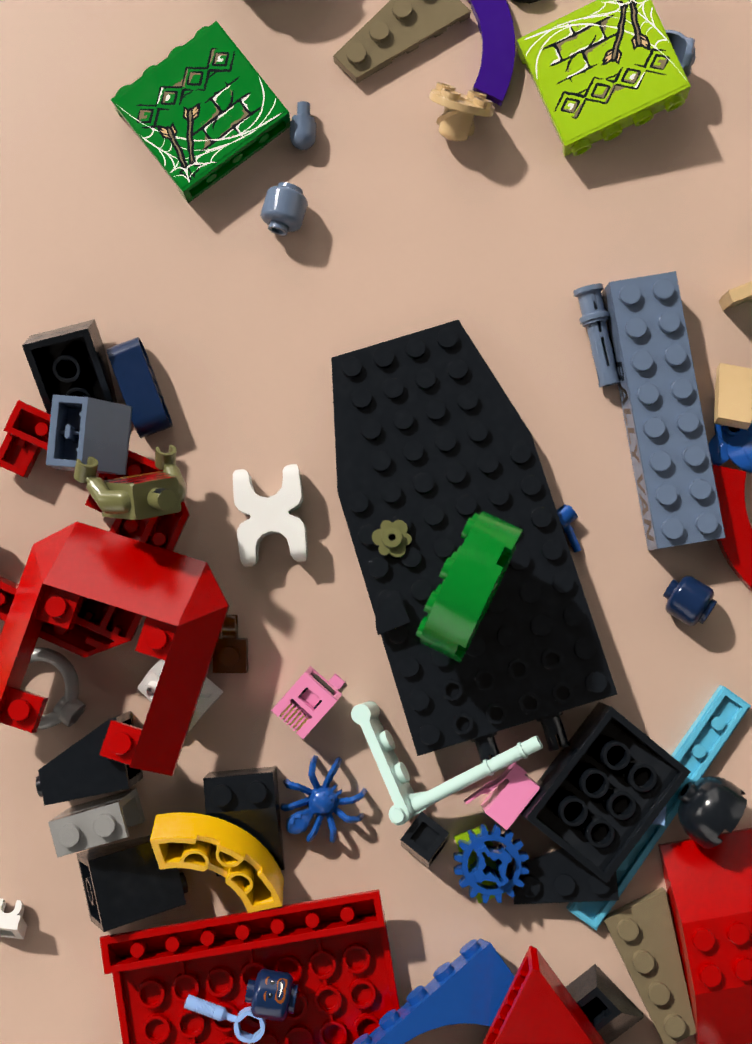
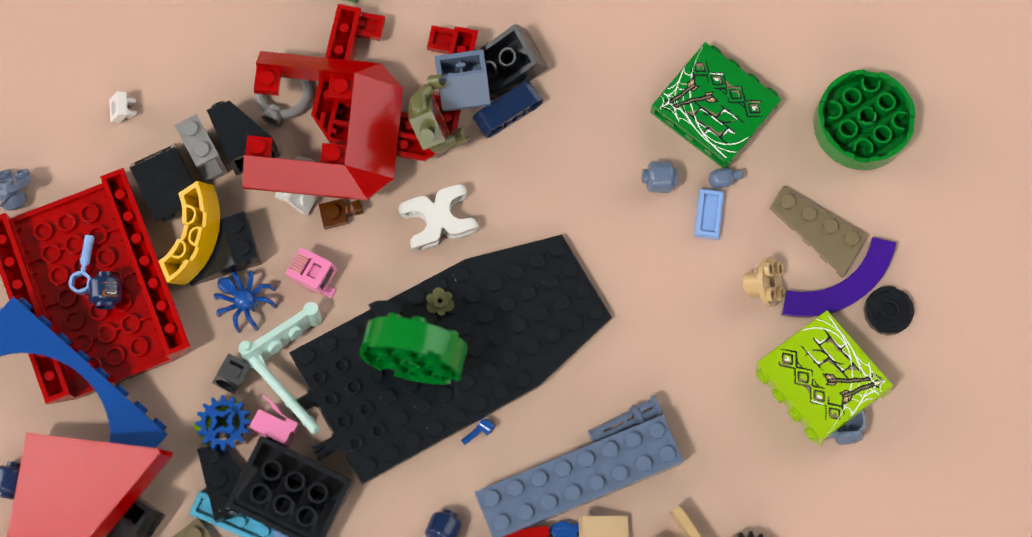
camera: 75 degrees right, 10 degrees down
(346, 161) = (708, 214): none -> light blue tile

